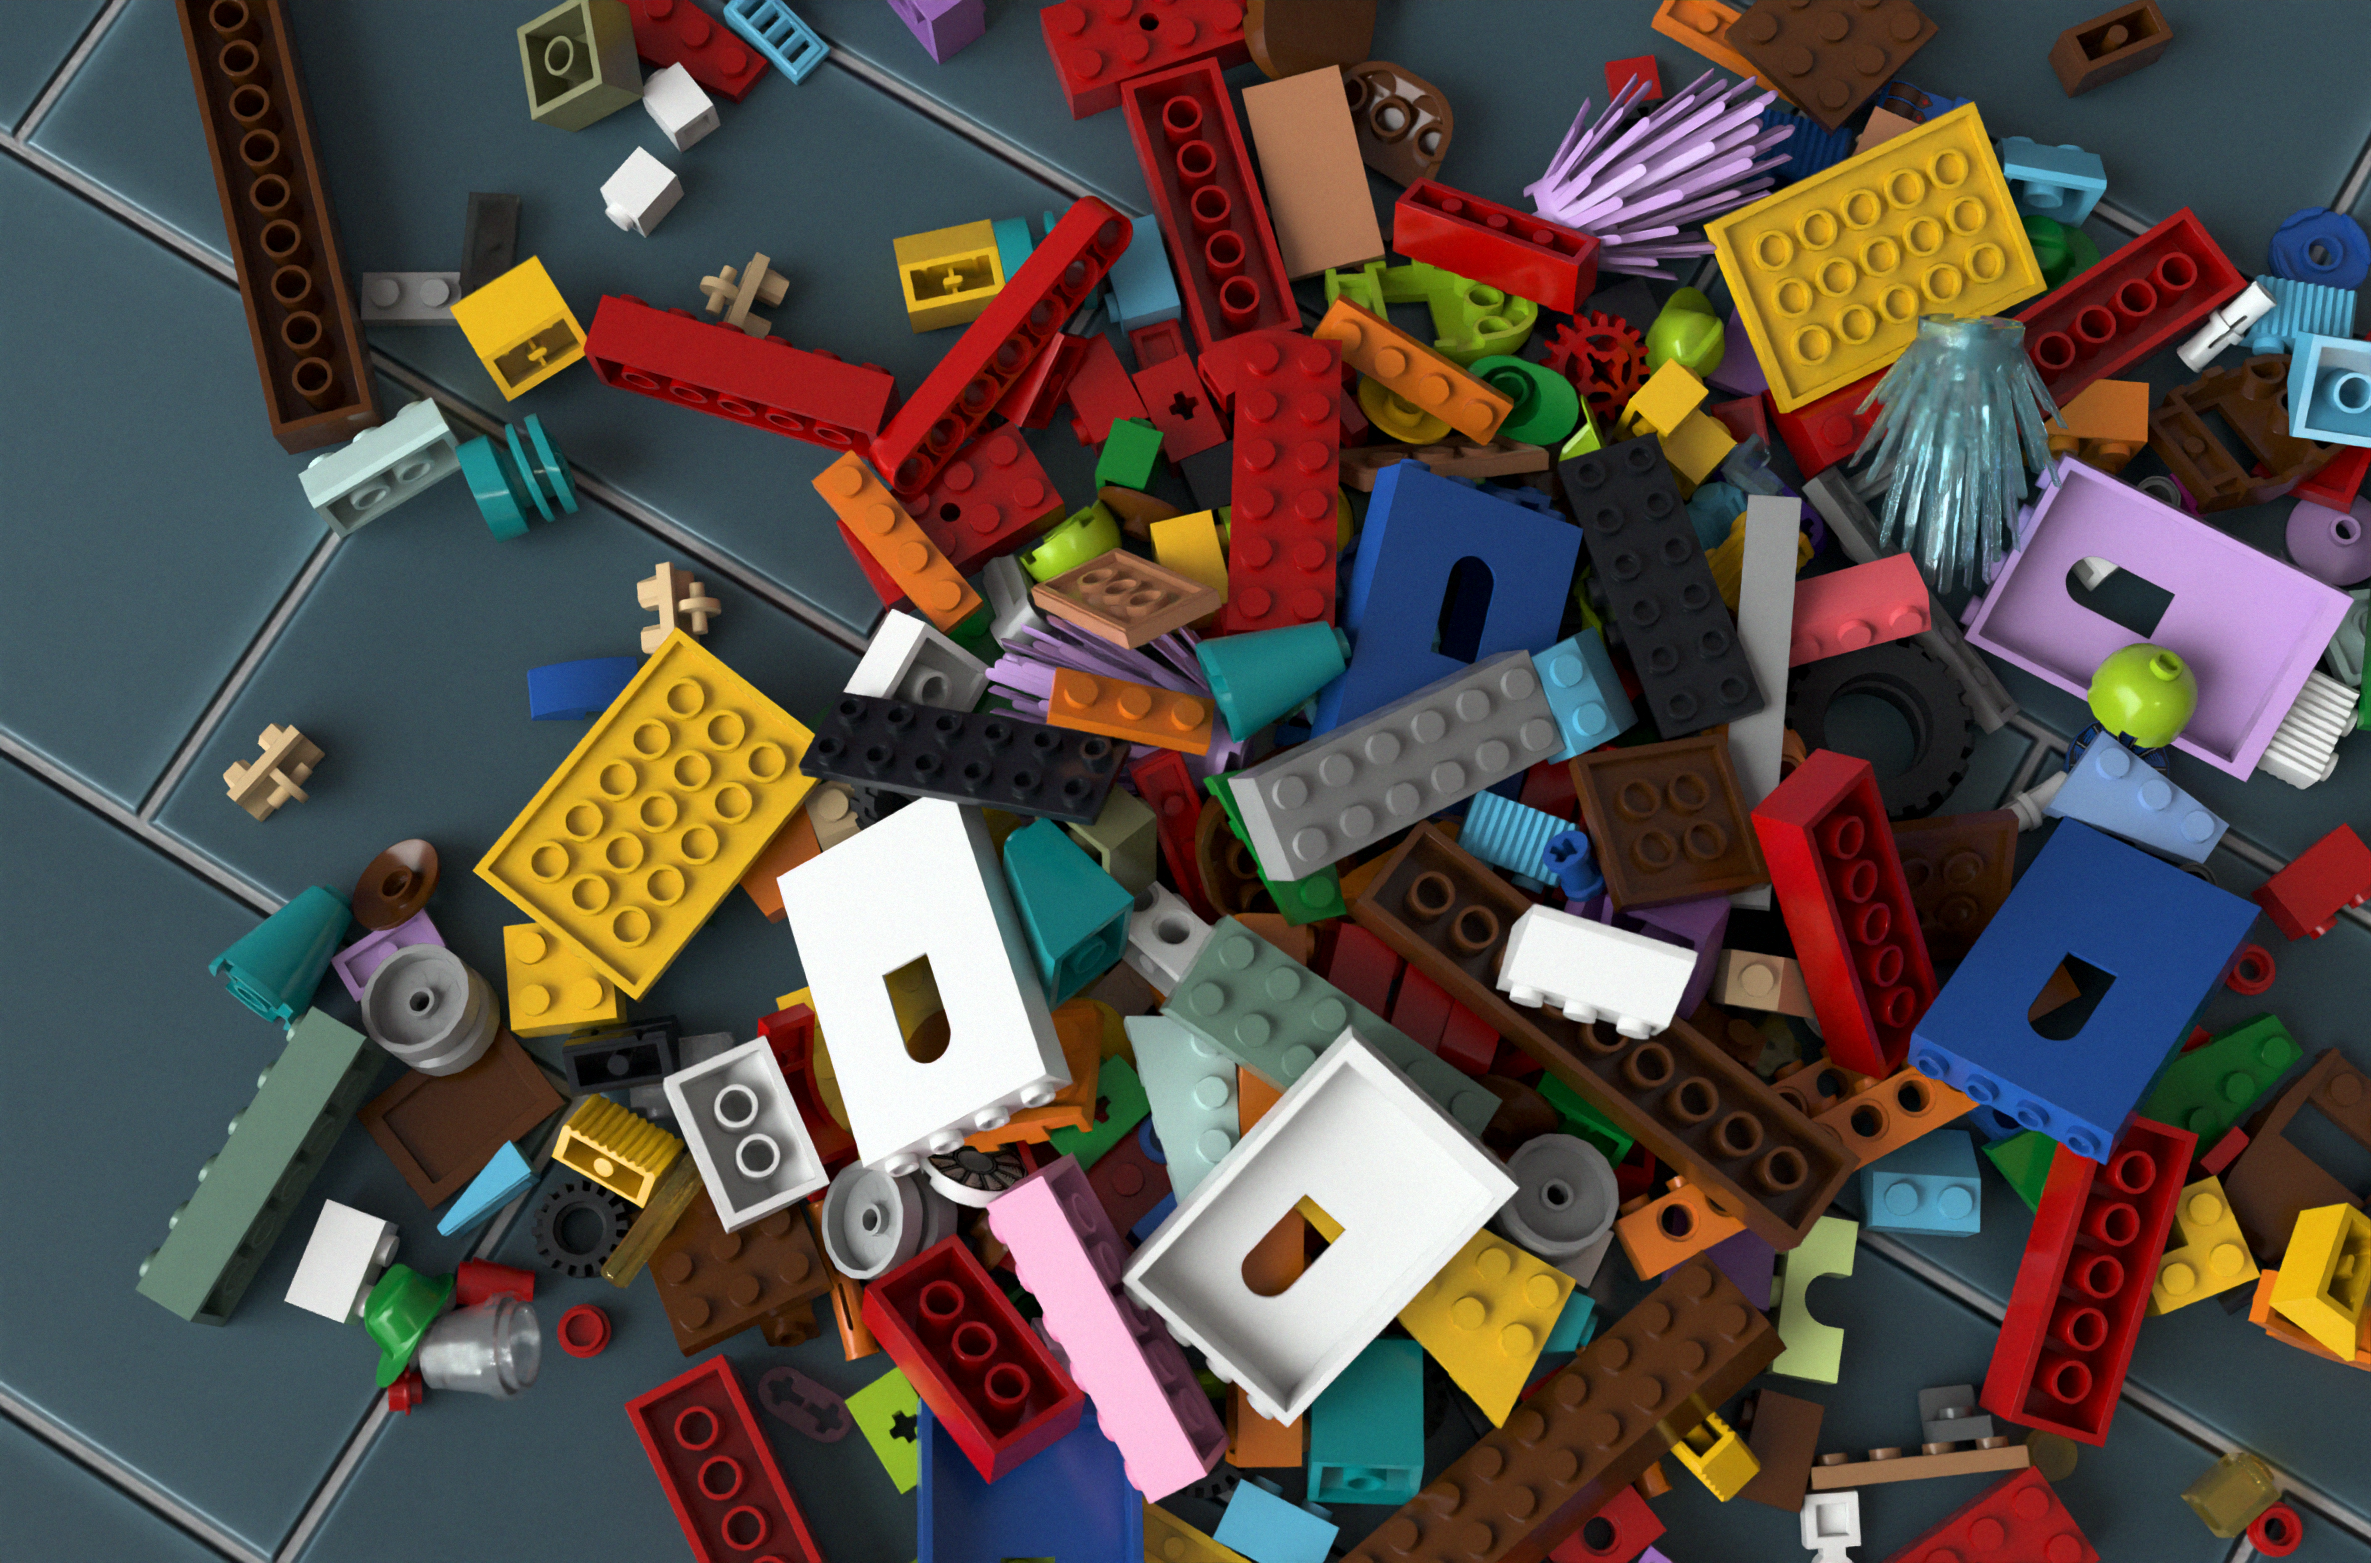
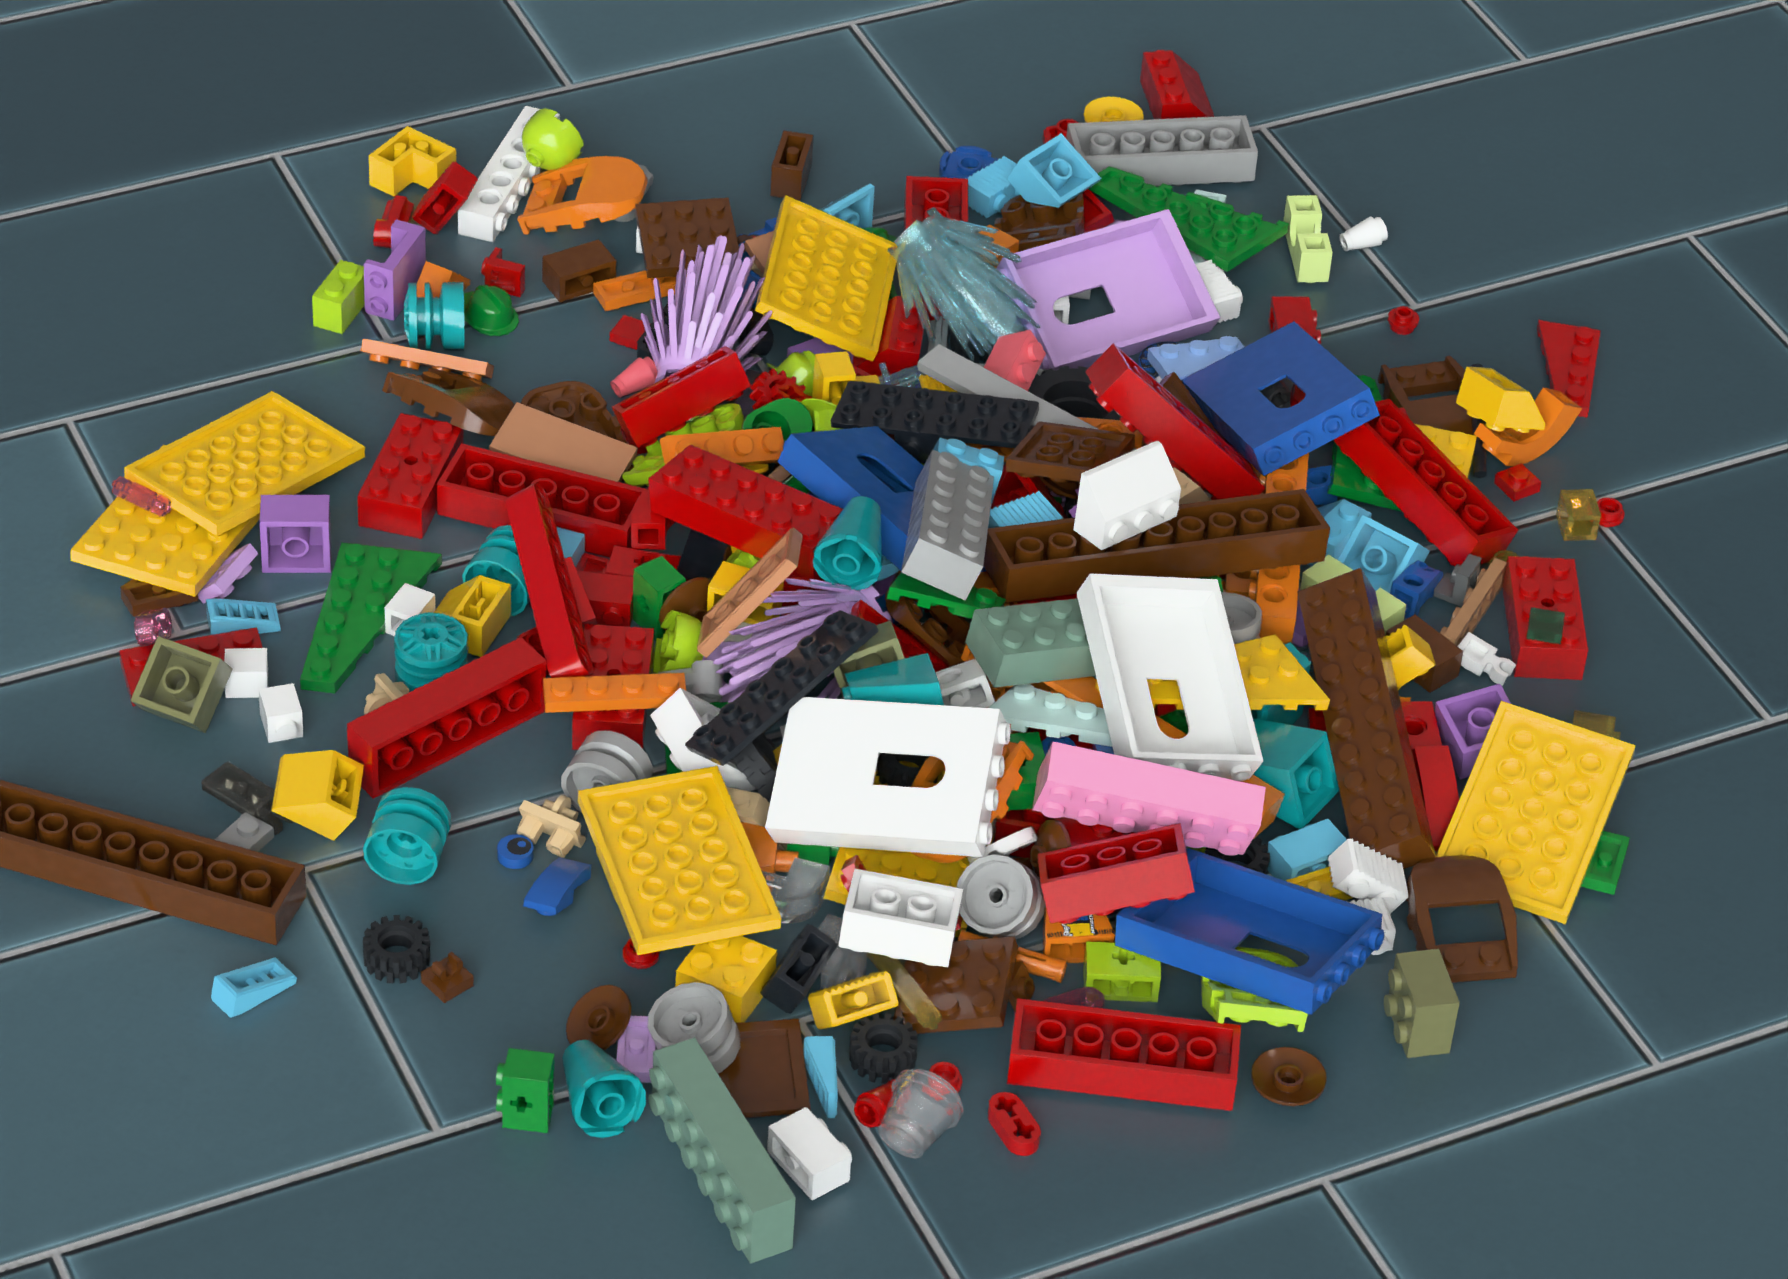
camera: 60 degrees left, 35 degrees down
(180, 448) = (239, 992): none -> medium azure slope
(211, 891) = (526, 1090): none -> green brick
(275, 774) = (478, 1037): tan hips -> none
(351, 560) = (396, 963): none -> black tyre
(366, 670) = (447, 978): none -> reddish brown tile
(382, 467) = (333, 894): light aqua slope -> none
(400, 1313) = (873, 1141): green piece -> none
(405, 1391) = (907, 1174): red plate -> none
(561, 1450) = (1007, 1126): none -> red beam
(616, 600) = (515, 851): none -> blue tile
(758, 967) = (800, 892): none -> clear brick
(781, 624) = (603, 761): none -> light grey wheel
(842, 315) = (428, 648): none -> teal wheel
(905, 140) = (355, 608): none -> green wing
(915, 203) = (405, 604): none -> white brick
(1130, 711) = (824, 600): orange plate -> none
(1533, 148) = (635, 377): none -> coral cone
(1571, 859) = (1057, 490): blue bush -> none
(1902, 1364) = (1415, 586): none -> blue leg
(1922, 1285) = (1380, 552): none -> medium azure slope
(2144, 694) = (1144, 314): lime cylinder -> none
(2226, 326) = (979, 202): white pin -> none
(2246, 1367) = (1517, 482): none -> red plate

